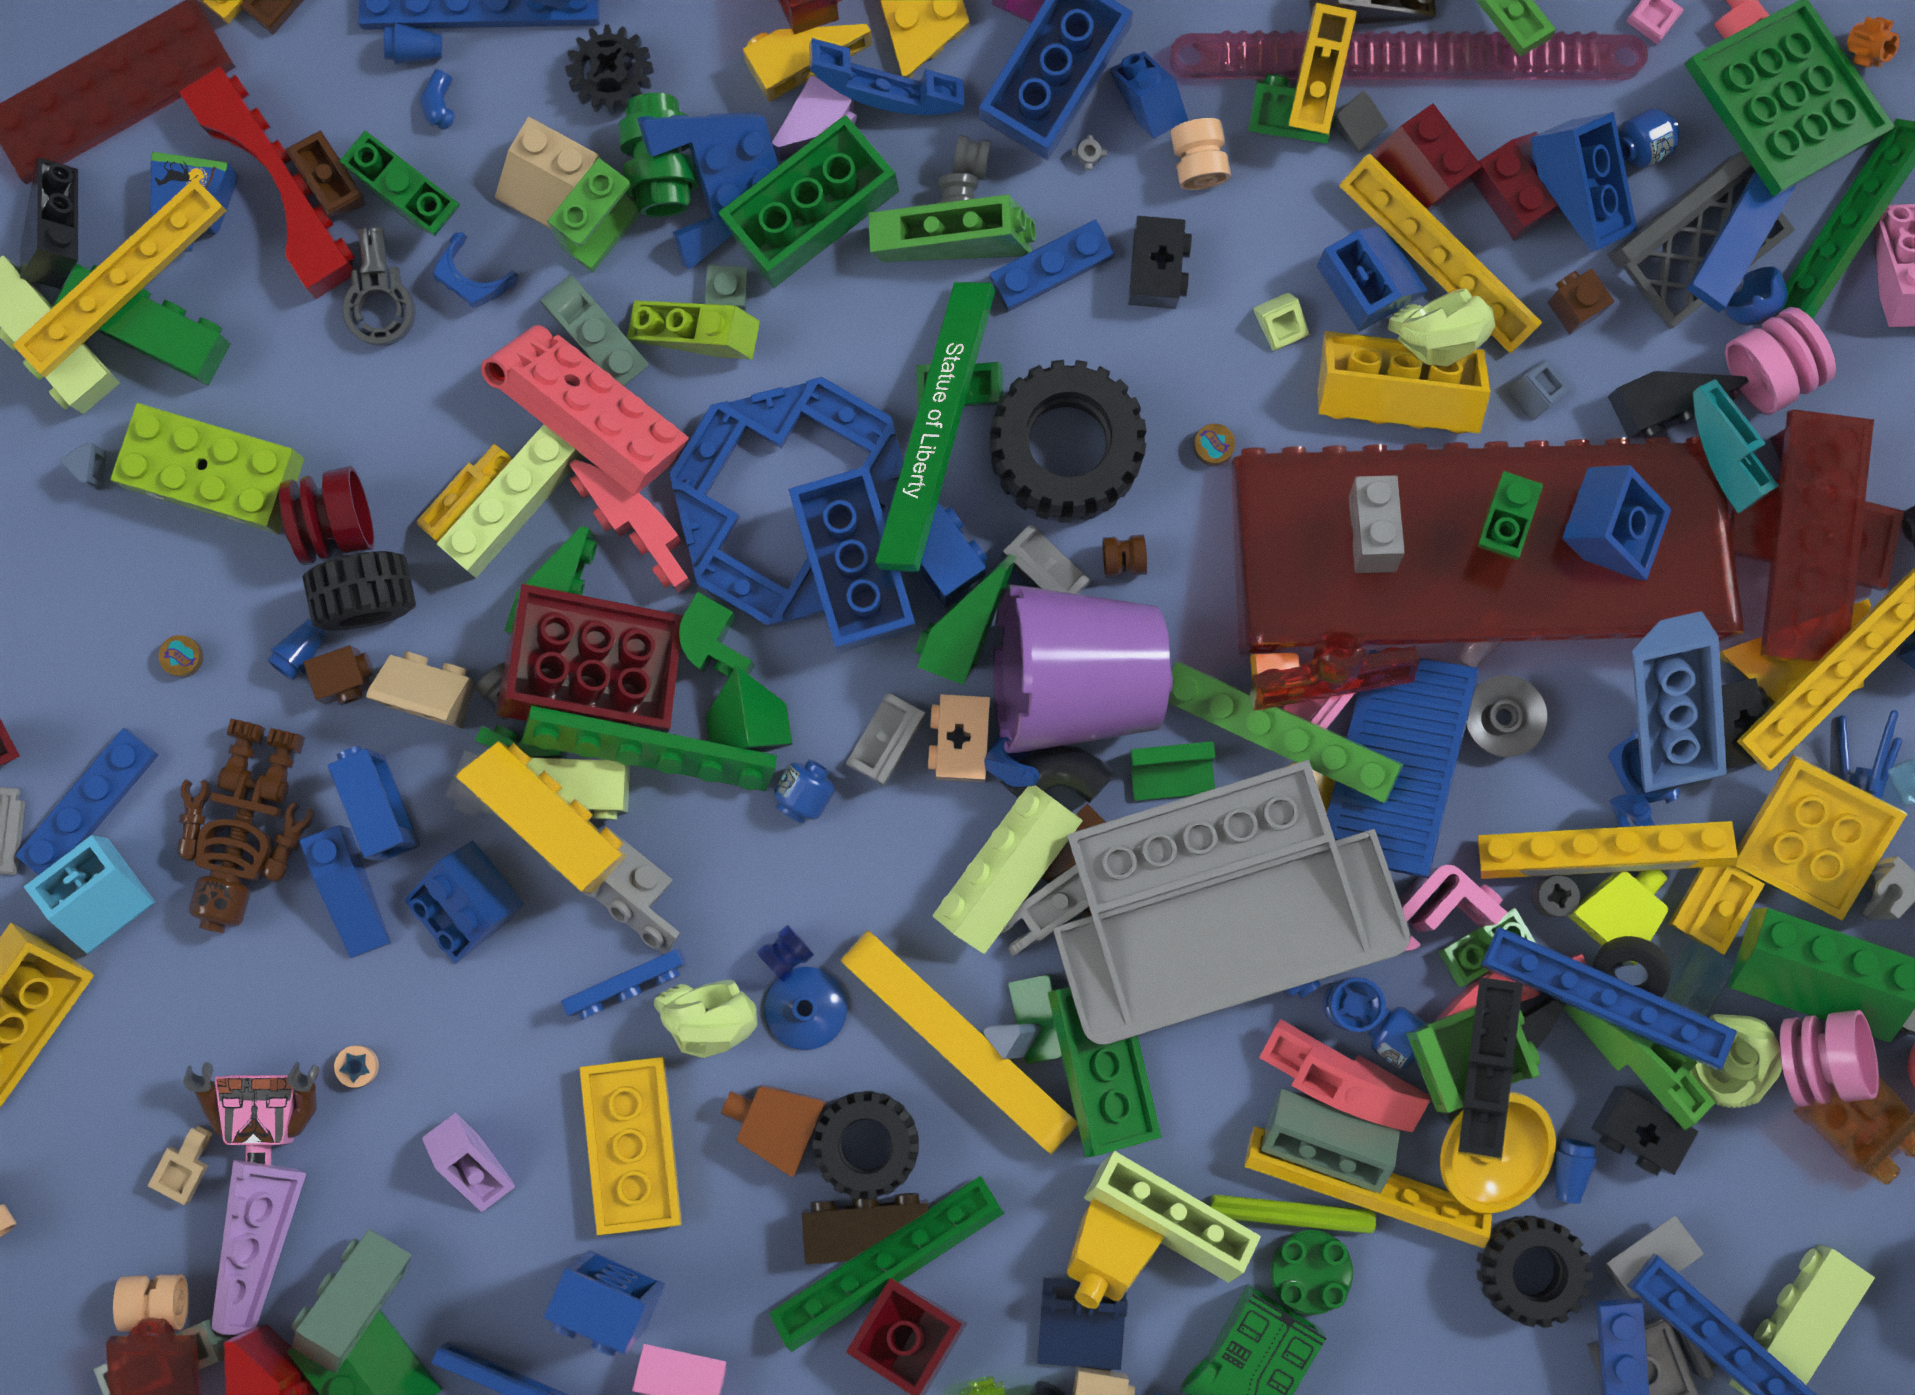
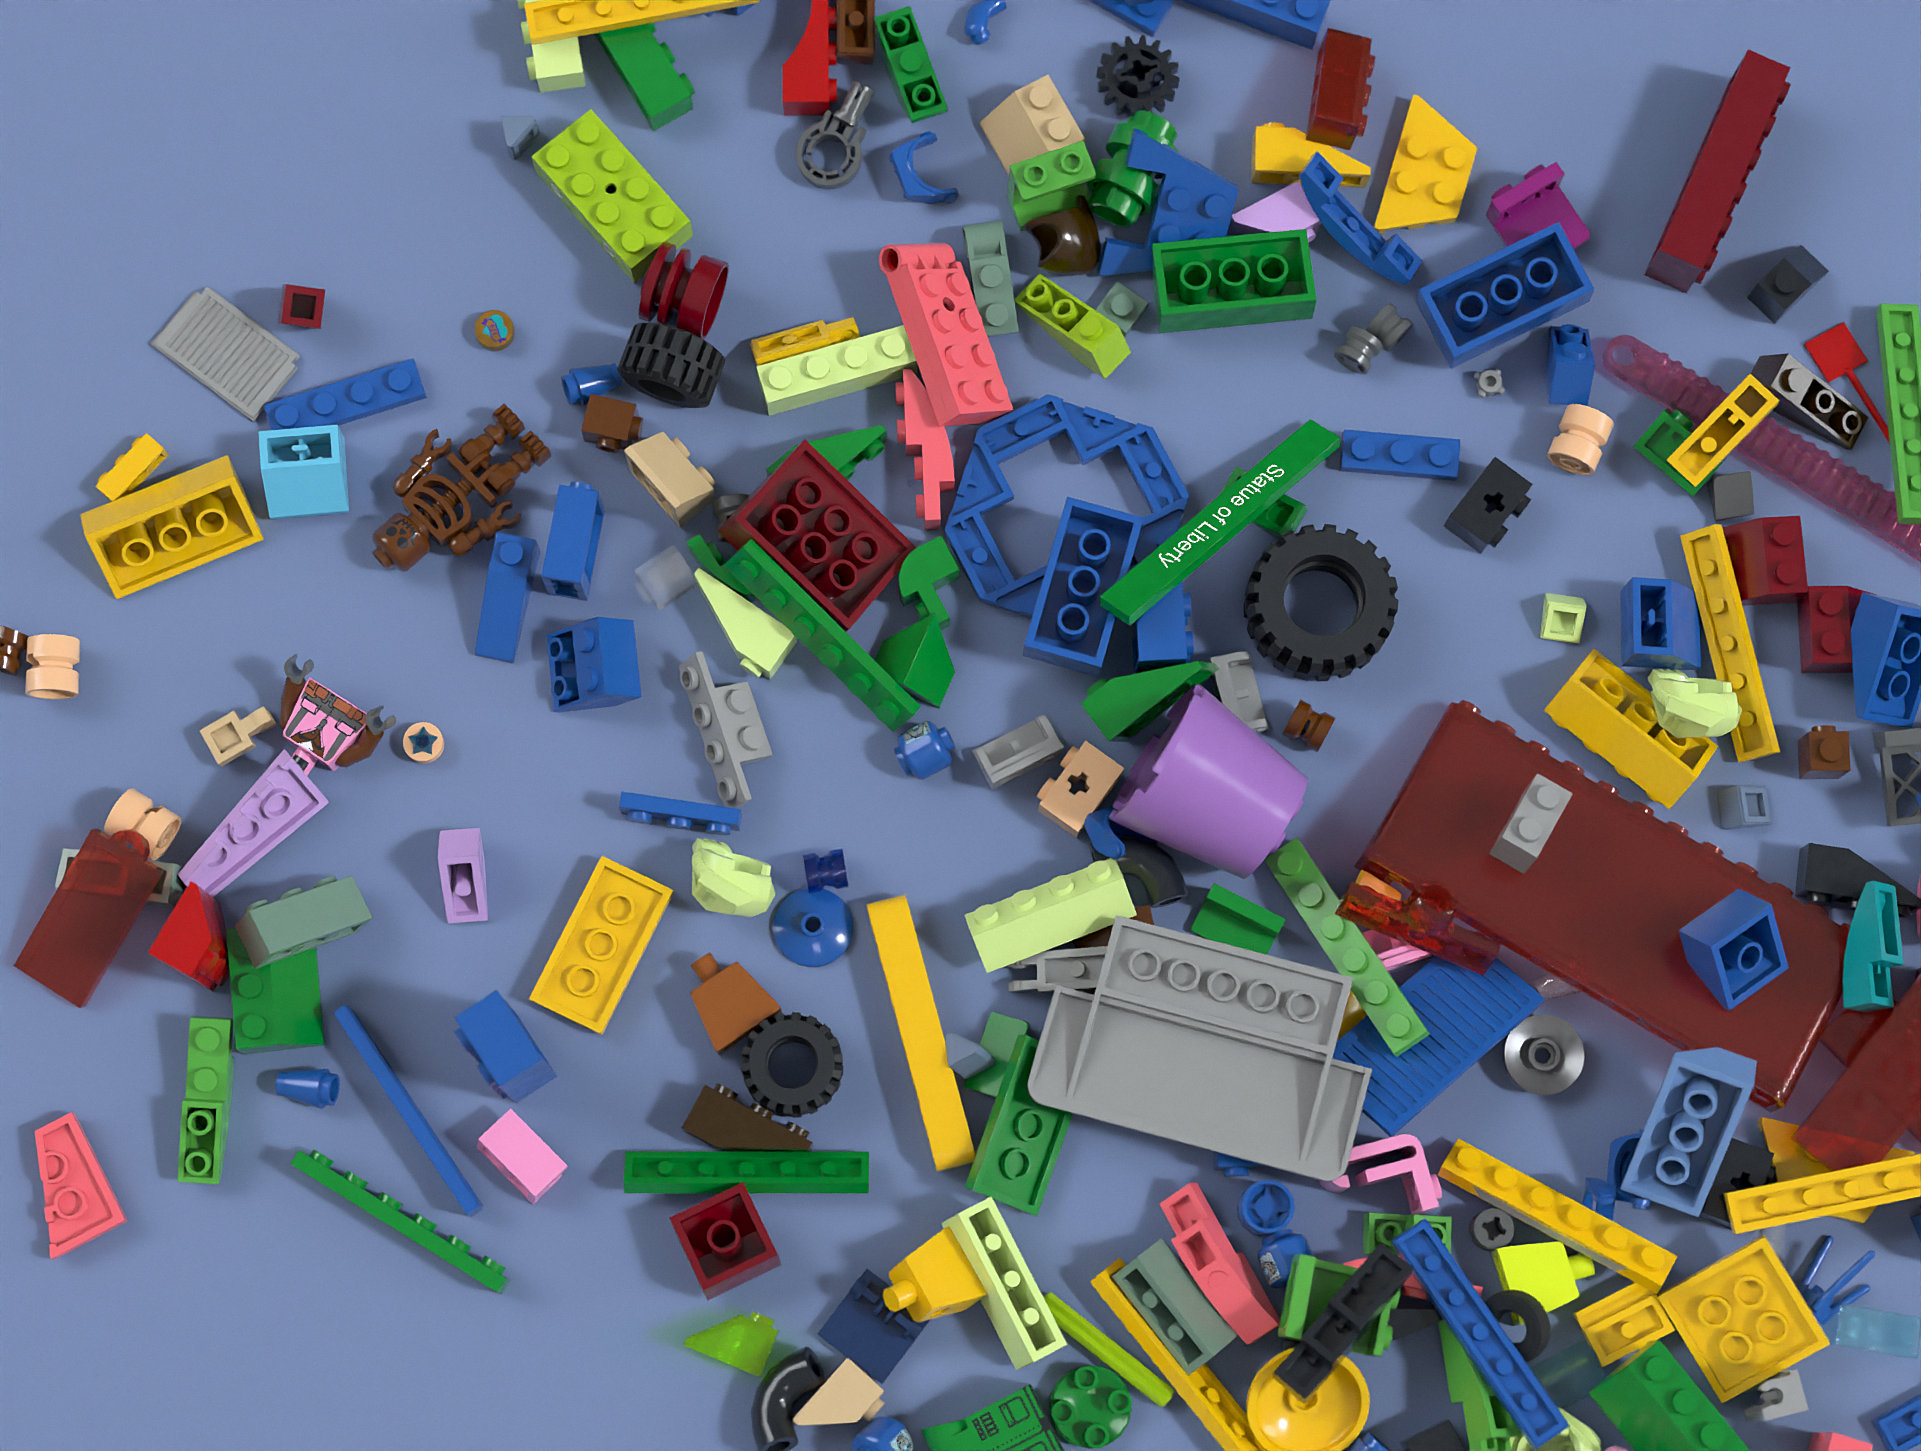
camera: 30 degrees right, 5 degrees down
(543, 816) = (704, 634): yellow slope -> none
(640, 255) = (1067, 240): none -> dark brown piece
(952, 230) = (1335, 376): bright green slope -> none
(1214, 444) = (1441, 682): pearl gold tile -> none
(1509, 515) = (1646, 884): green slope -> none

